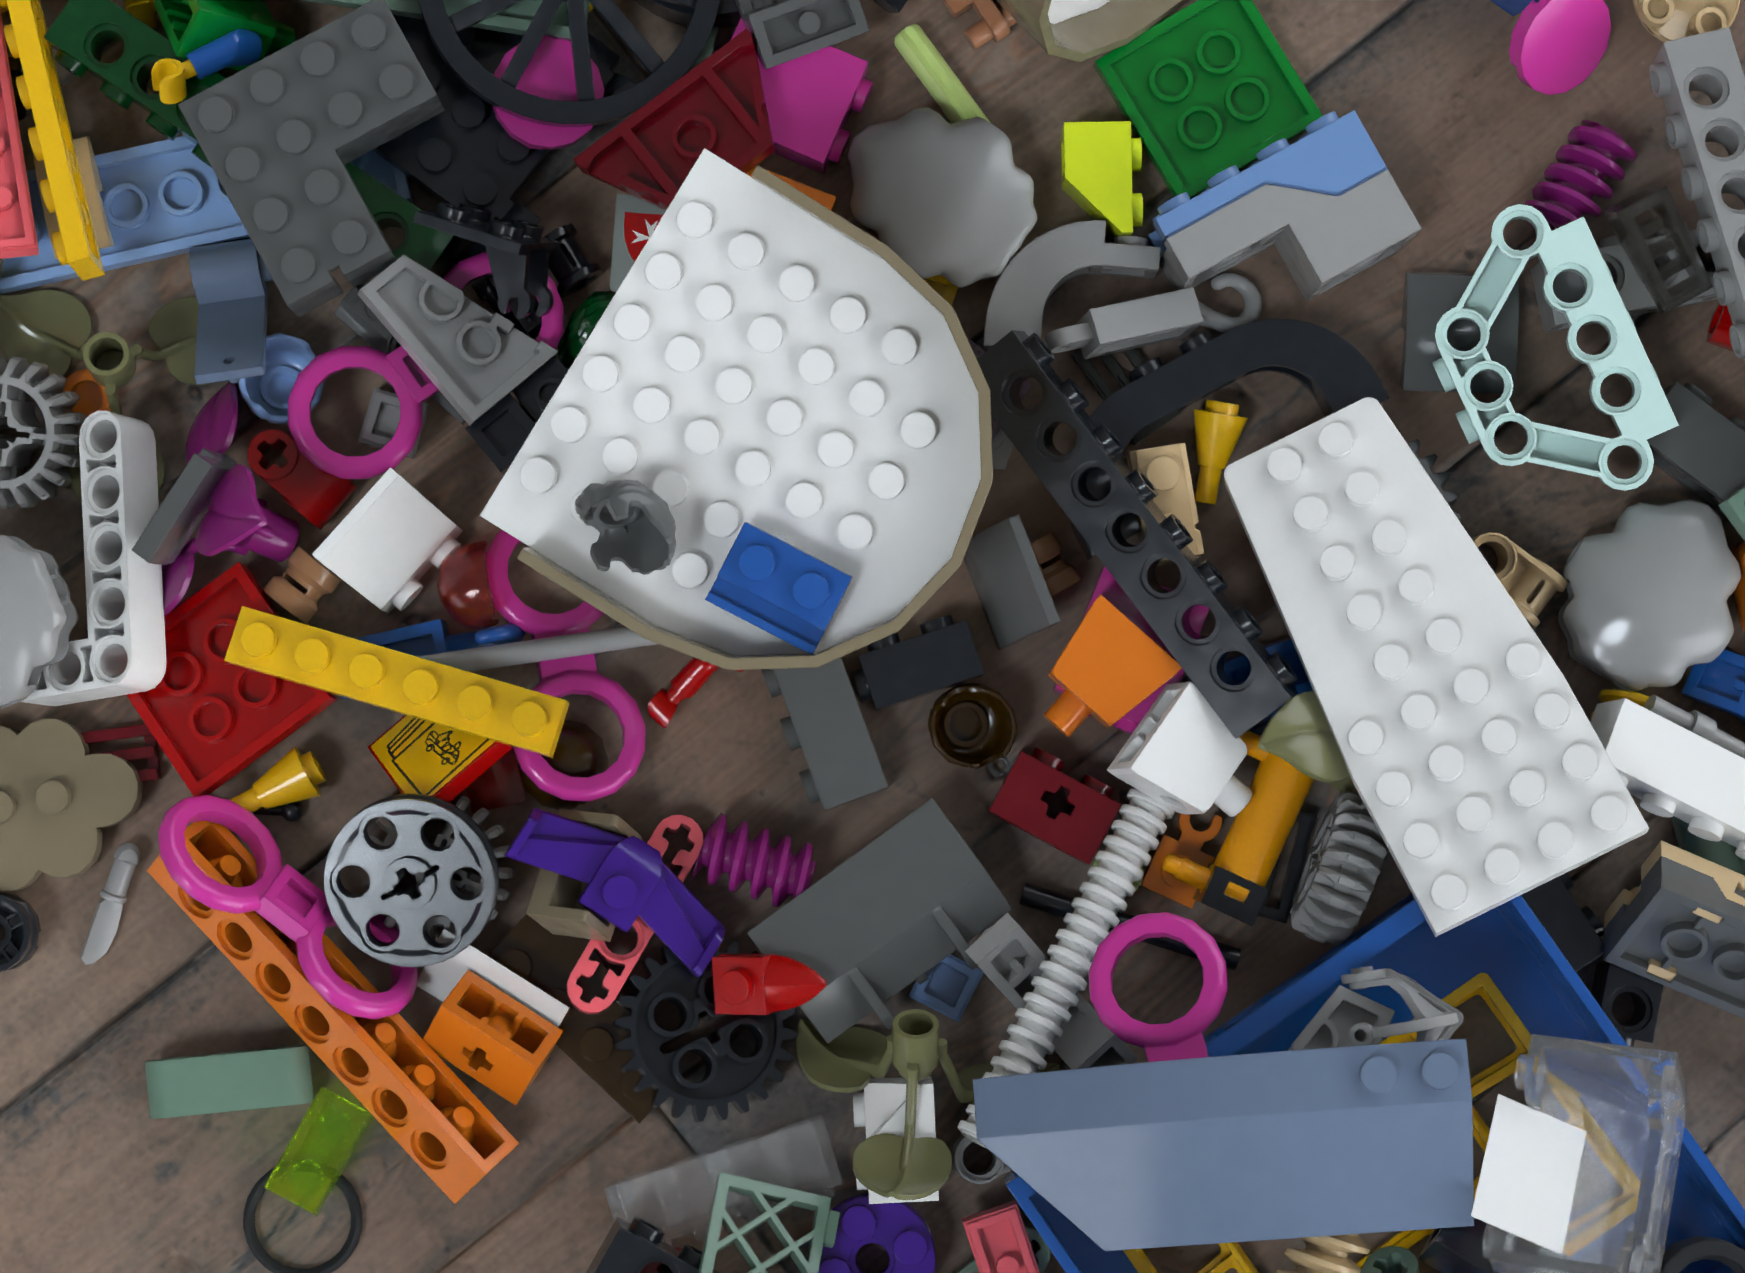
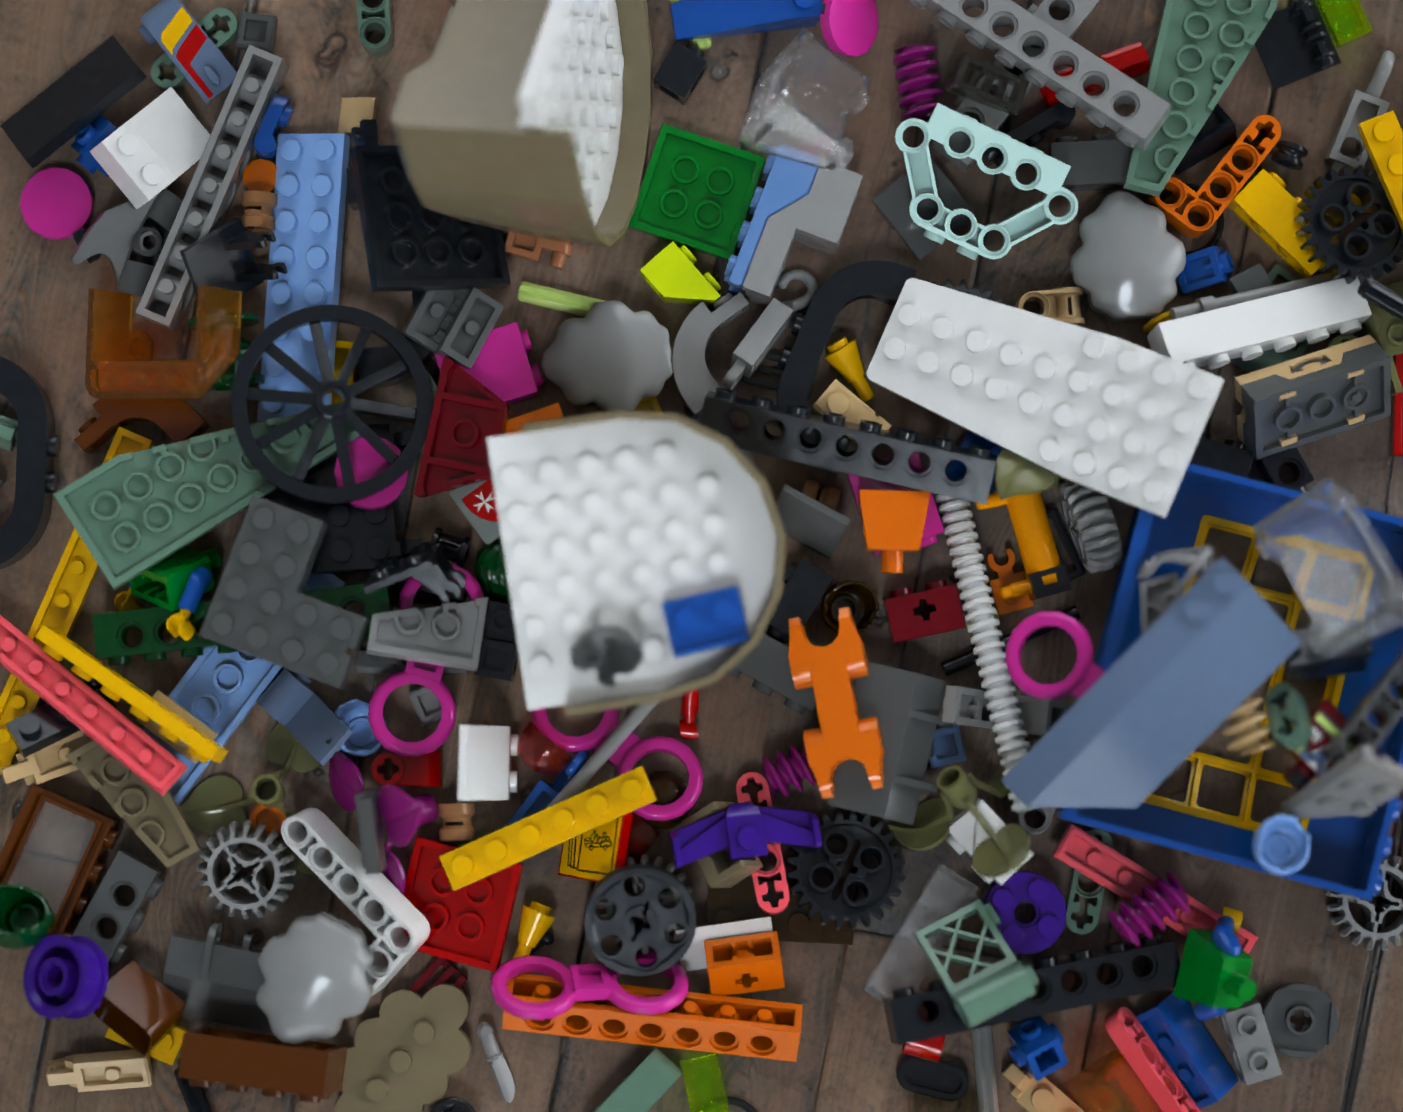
camera: 35 degrees left, 0 degrees up
(762, 983) = (856, 822): red plate -> none
(838, 858) = (841, 730): none -> orange piece
(1184, 755) = (967, 533): white torso -> none
(1424, 92) = (805, 105): none -> clear windscreen
(1529, 1174) = (1307, 595): white sticker -> none
(1666, 351) = (1033, 131): none -> black plate

